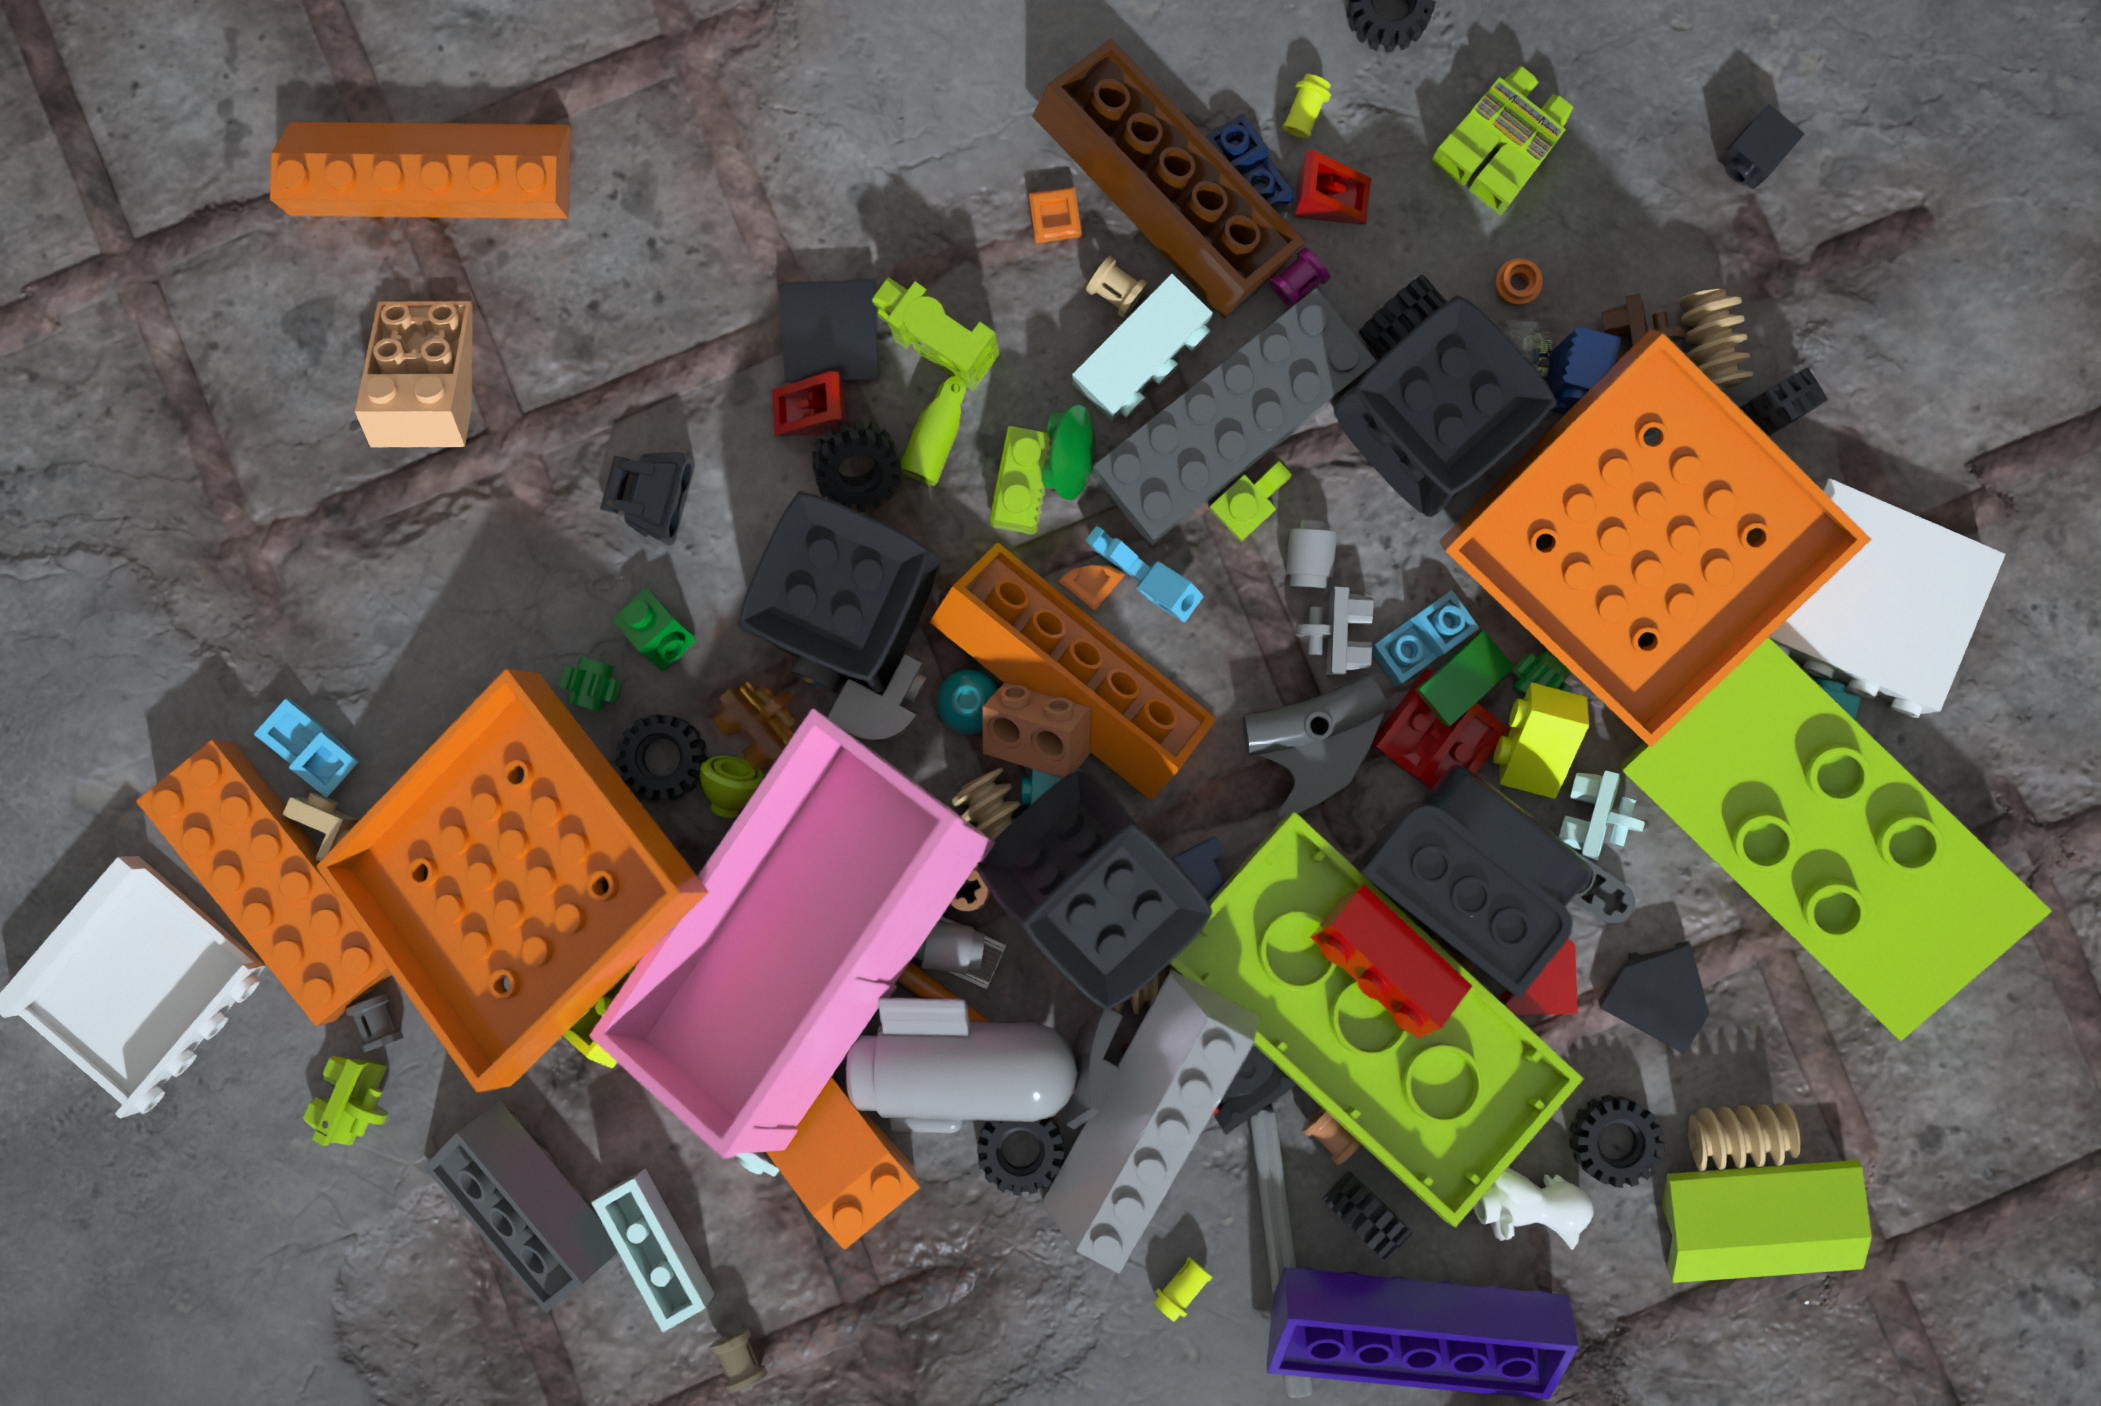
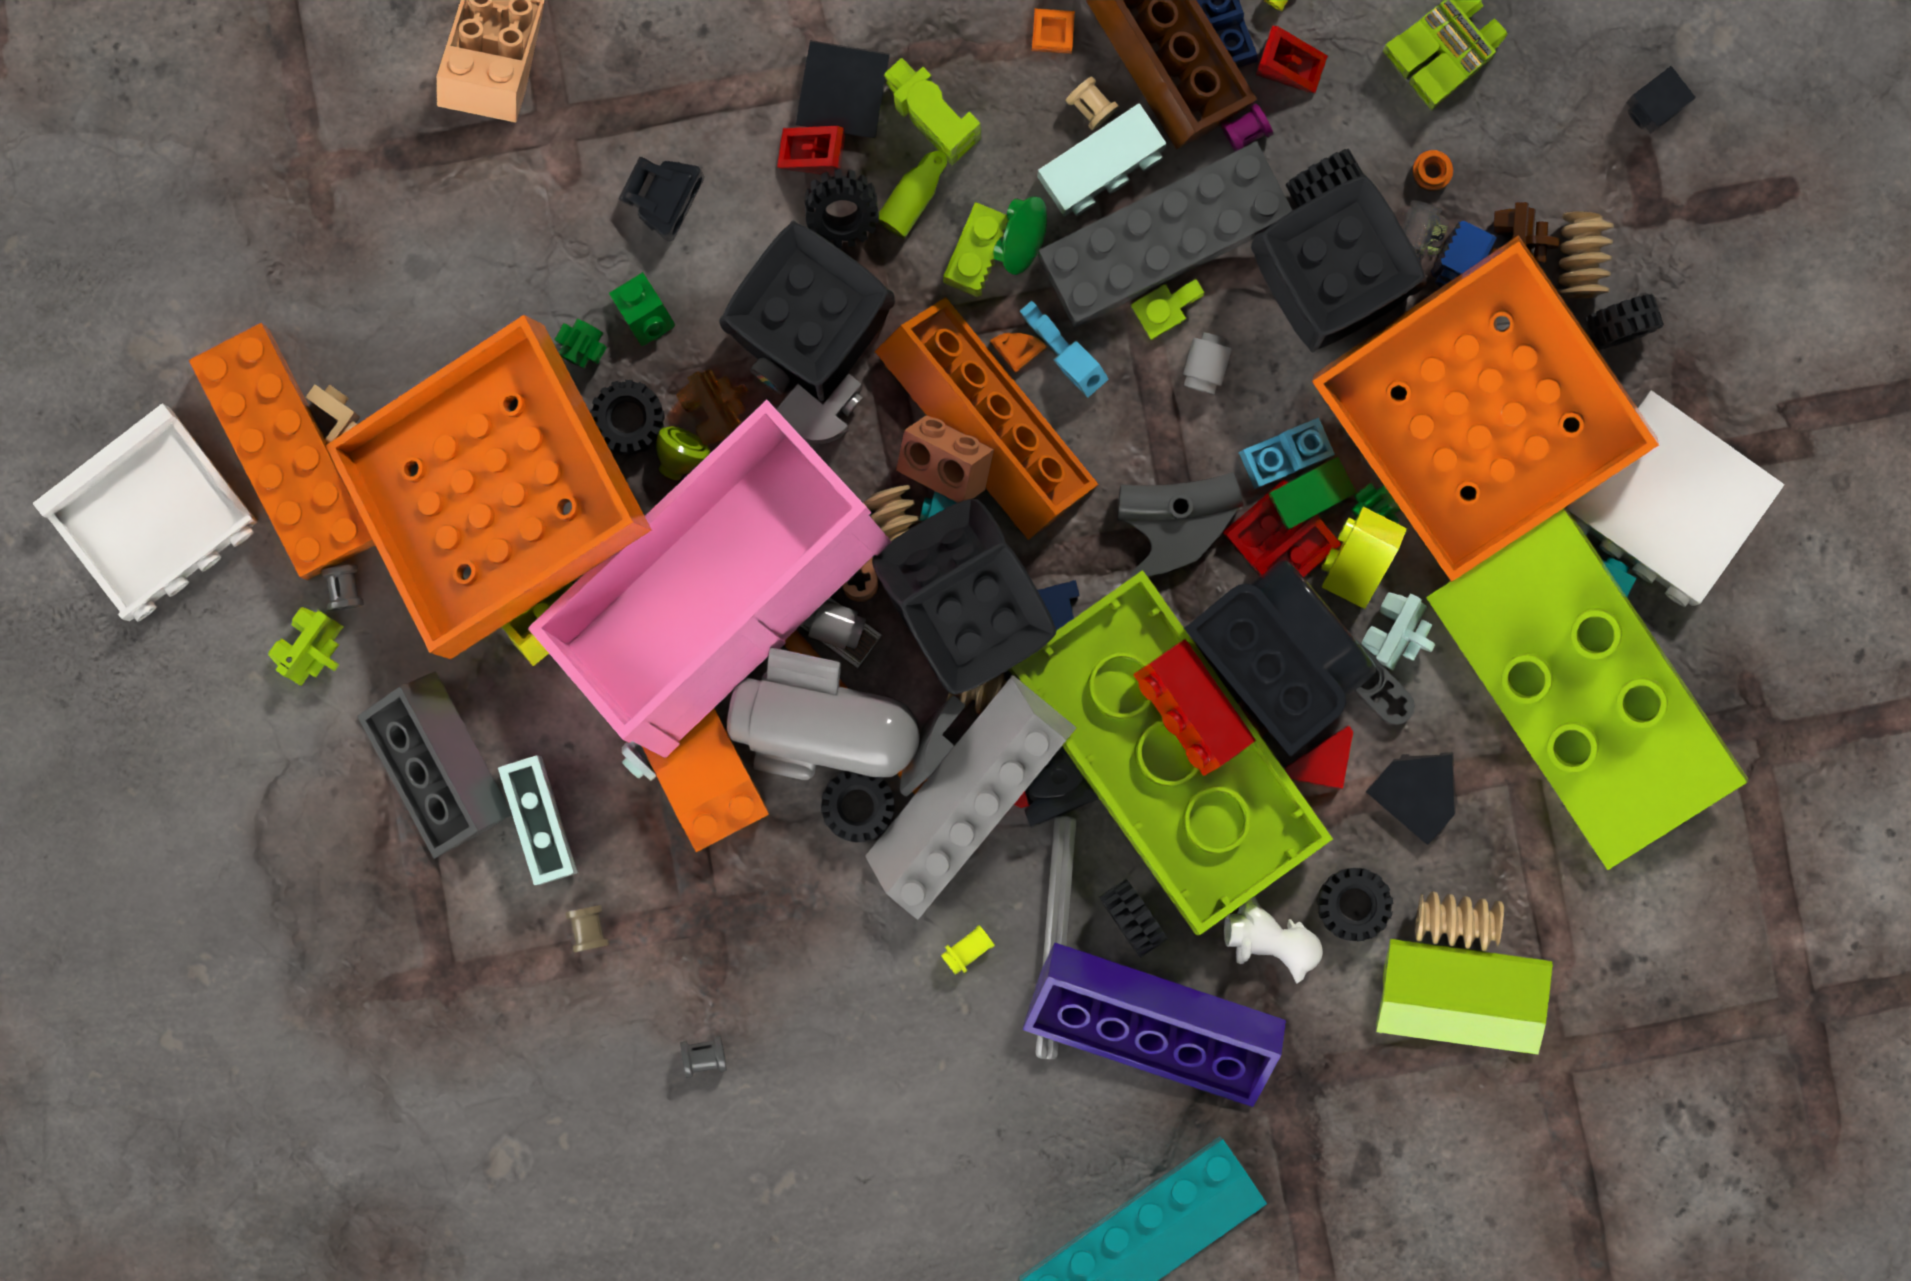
camera: 10 degrees right, 0 degrees up
(307, 746) = (331, 346): medium azure slope -> none
(962, 699) = (887, 424): teal brick -> none
(1331, 1135) = (1119, 849): nougat bush -> none
(1342, 610) = (1214, 451): light grey hips -> none

